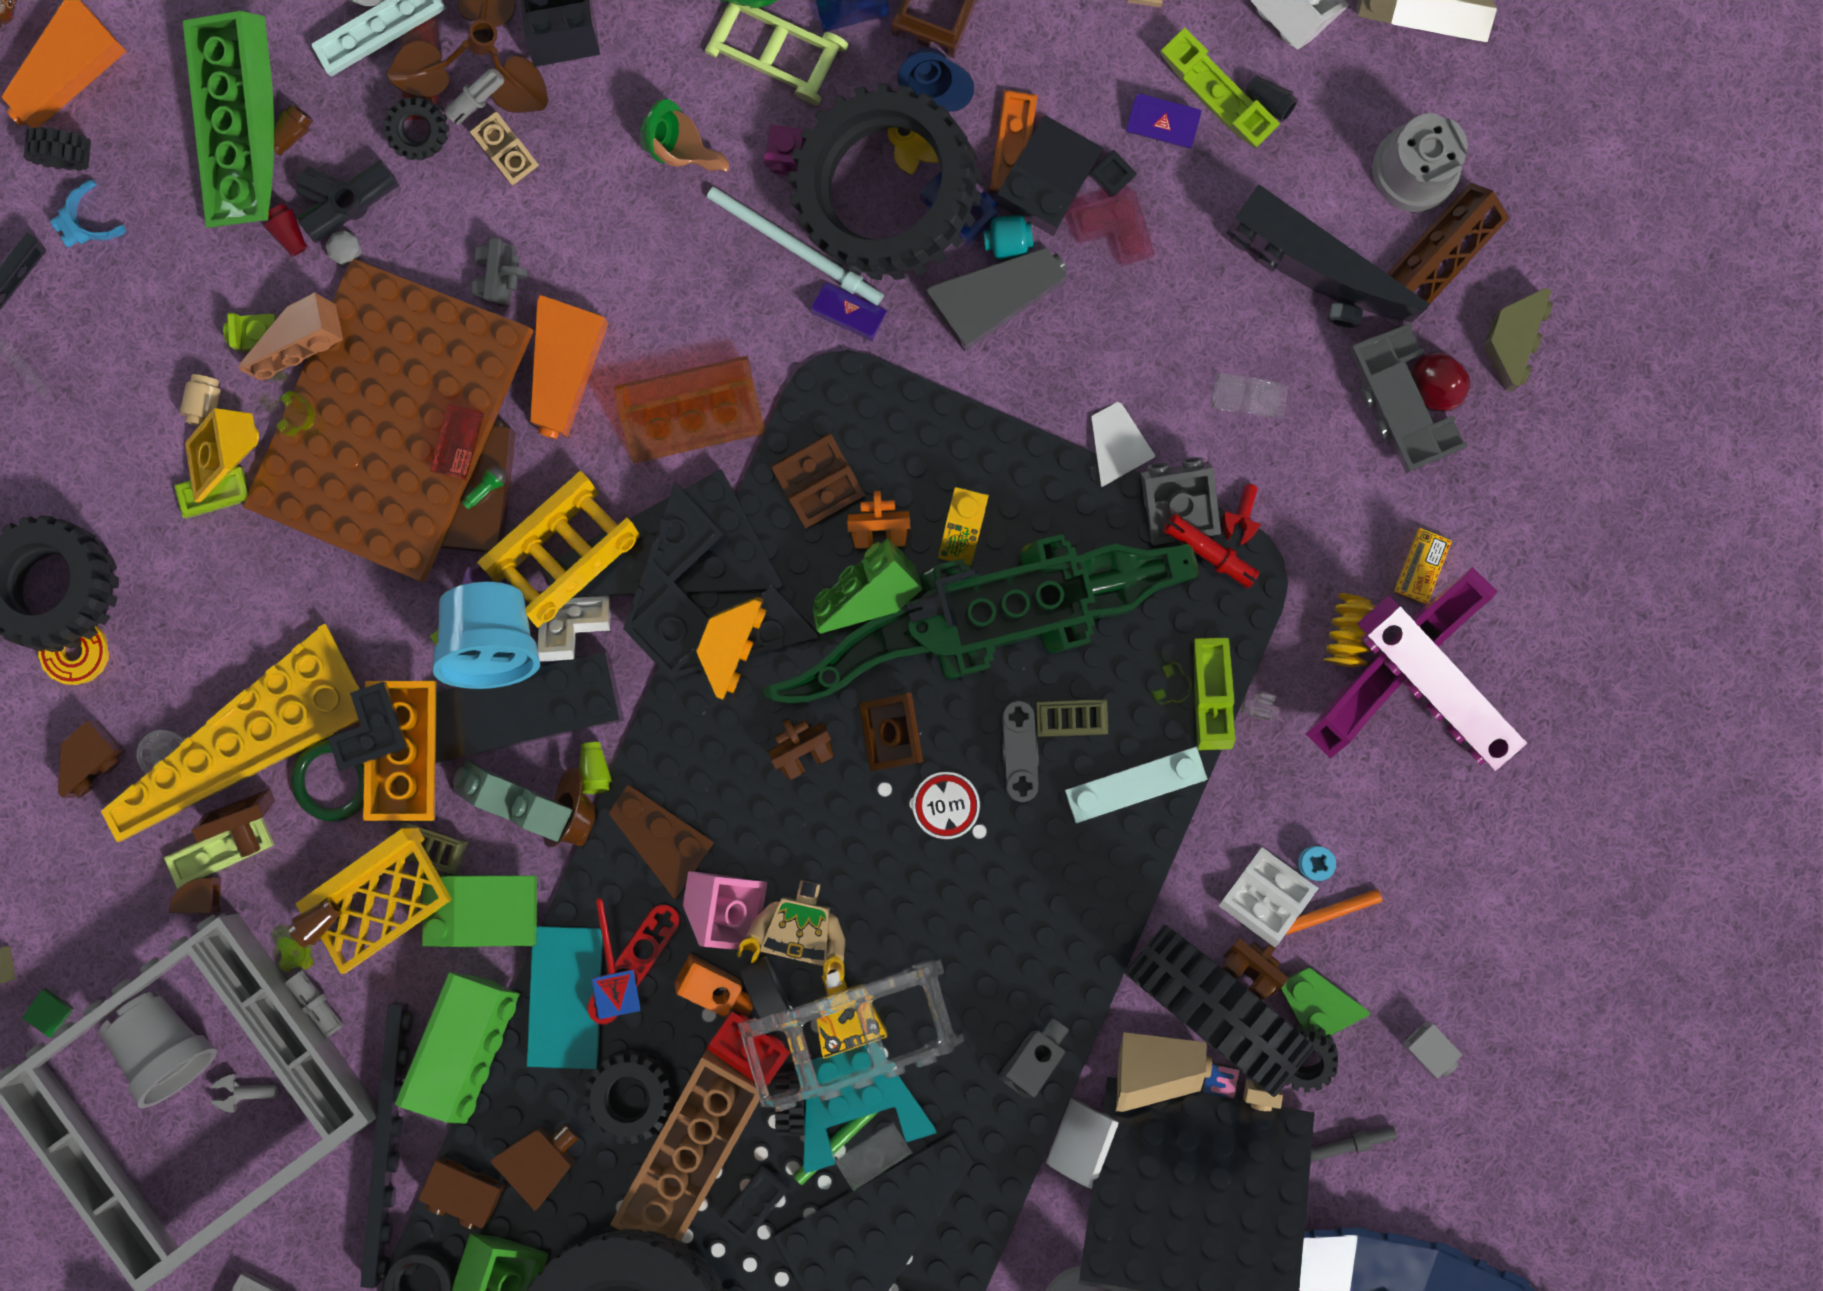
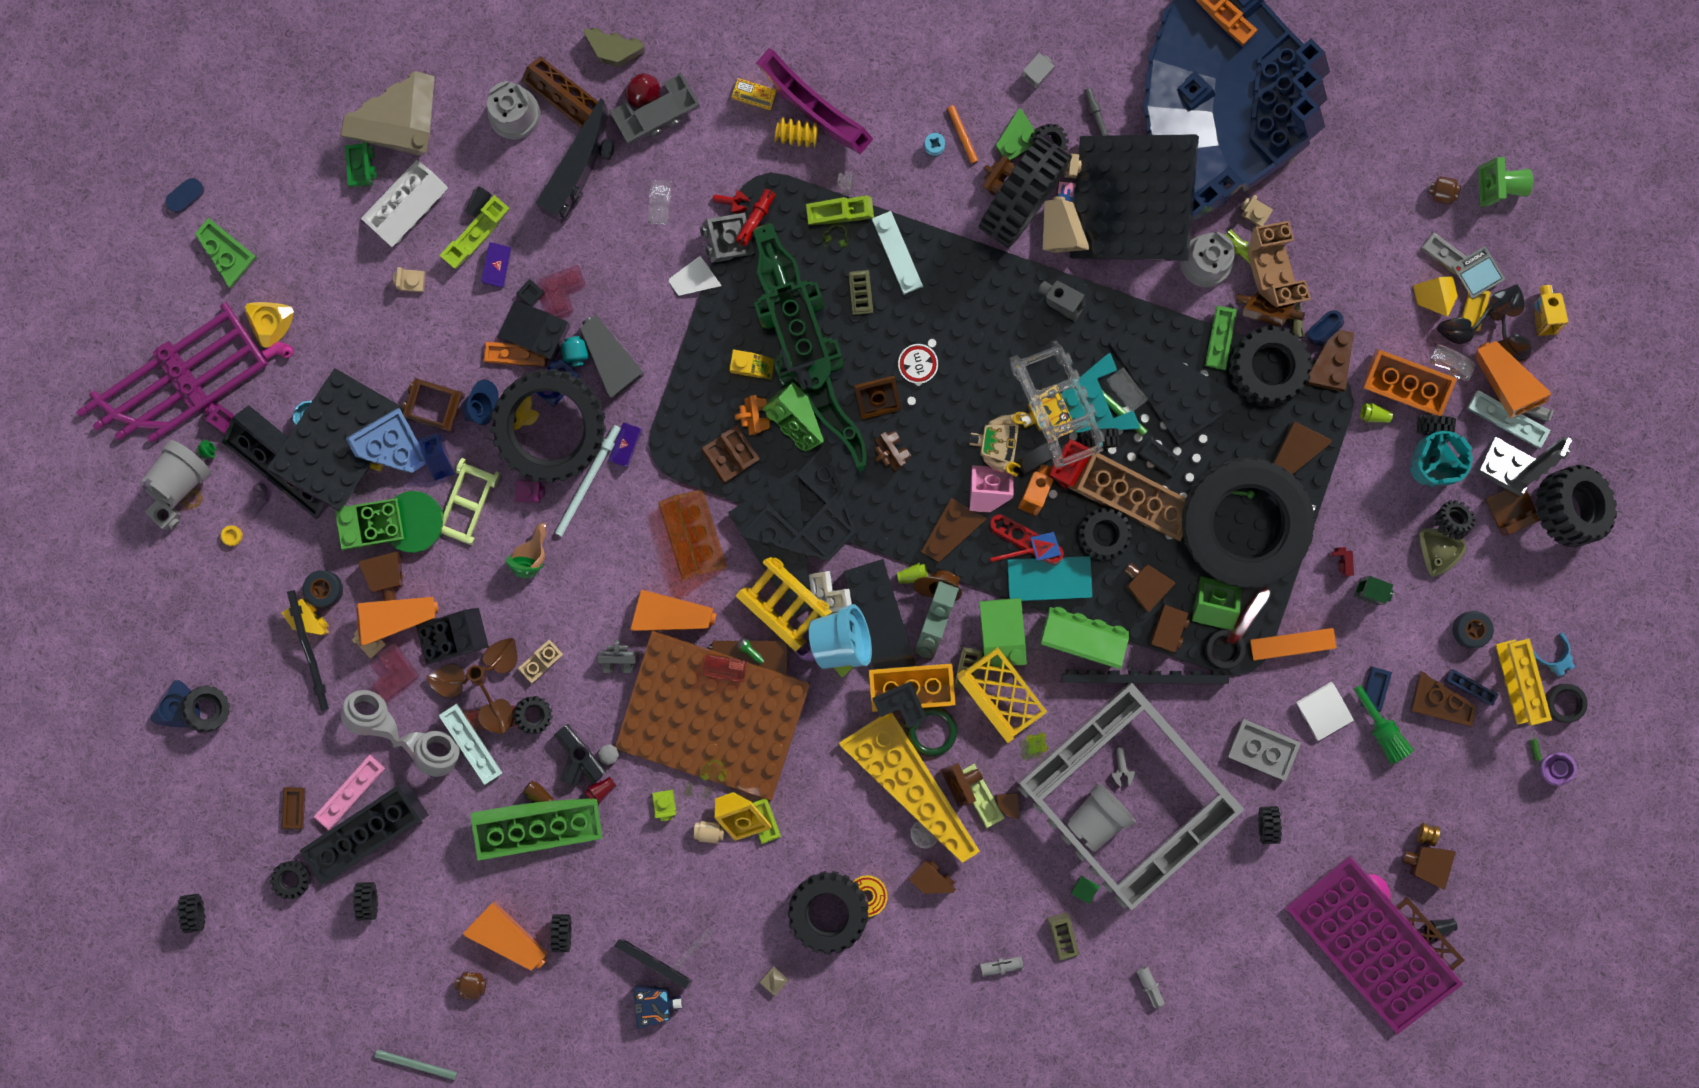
camera: 100 degrees left, 0 degrees up
(69, 224) = (606, 924): dark azure helmet -> none
(295, 335) = (664, 774): nougat slope -> none
(312, 924) = (1018, 729): reddish brown cone -> none
(314, 1004) = (1066, 728): light grey pin -> none
(474, 96) = (510, 681): light grey axle -> none
(727, 642) = (832, 496): light orange slope -> none
(1020, 751) = (883, 321): dark grey piece -> none
(1082, 1143) = (1108, 268): white slope -> none
(1268, 897) = (956, 171): white slope -> none
(1443, 684) = (825, 76): piece -> none

